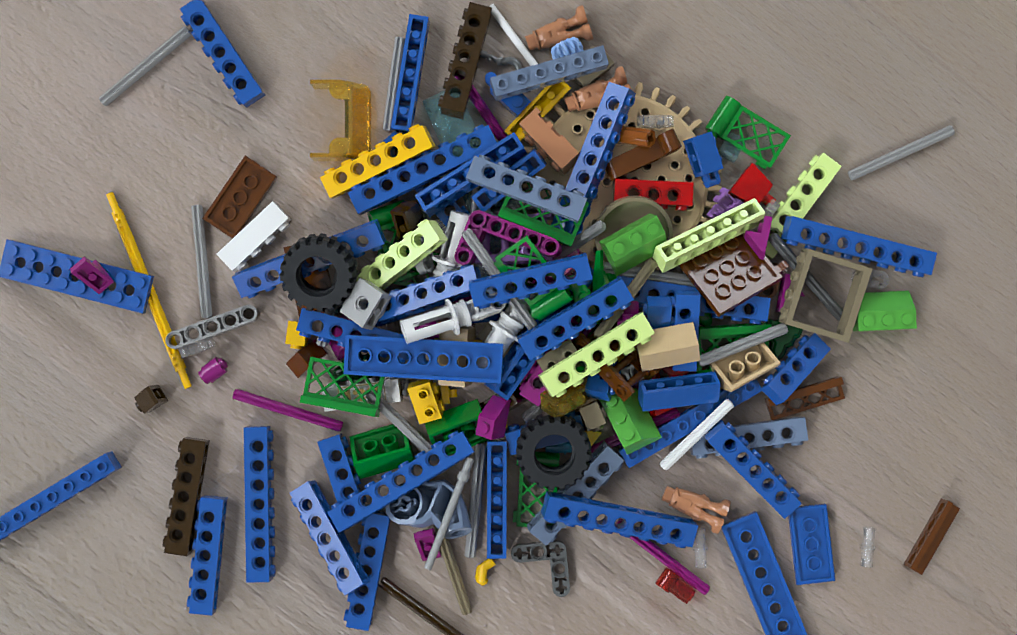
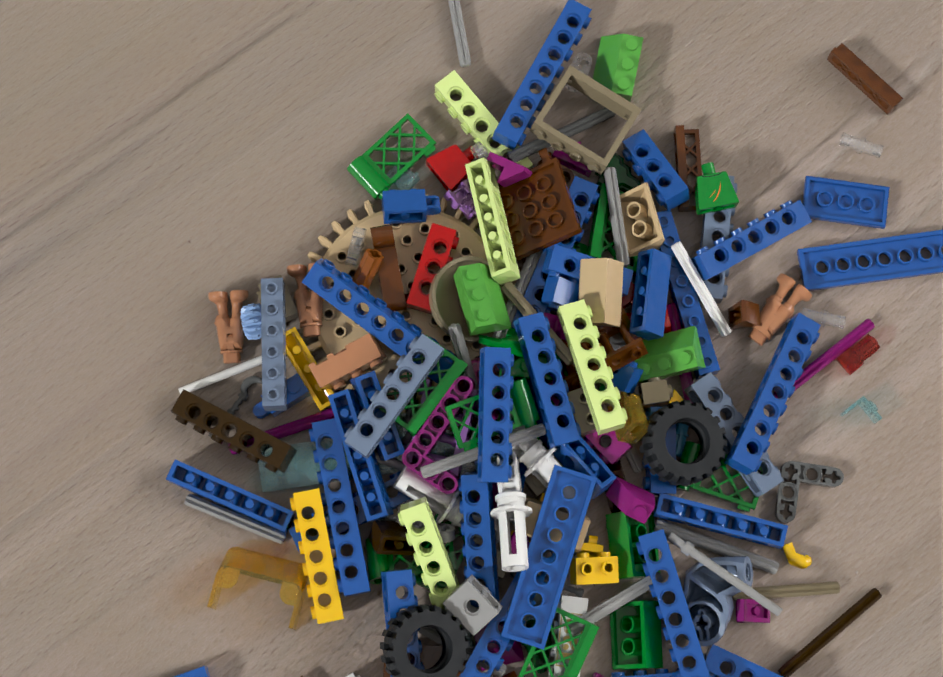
camera: 80 degrees left, 10 degrees down
(630, 606) = (868, 407): none -> clear light blue bracket
(683, 477) = (743, 315): none -> reddish brown slope
(789, 425) = (714, 191): none -> green torso

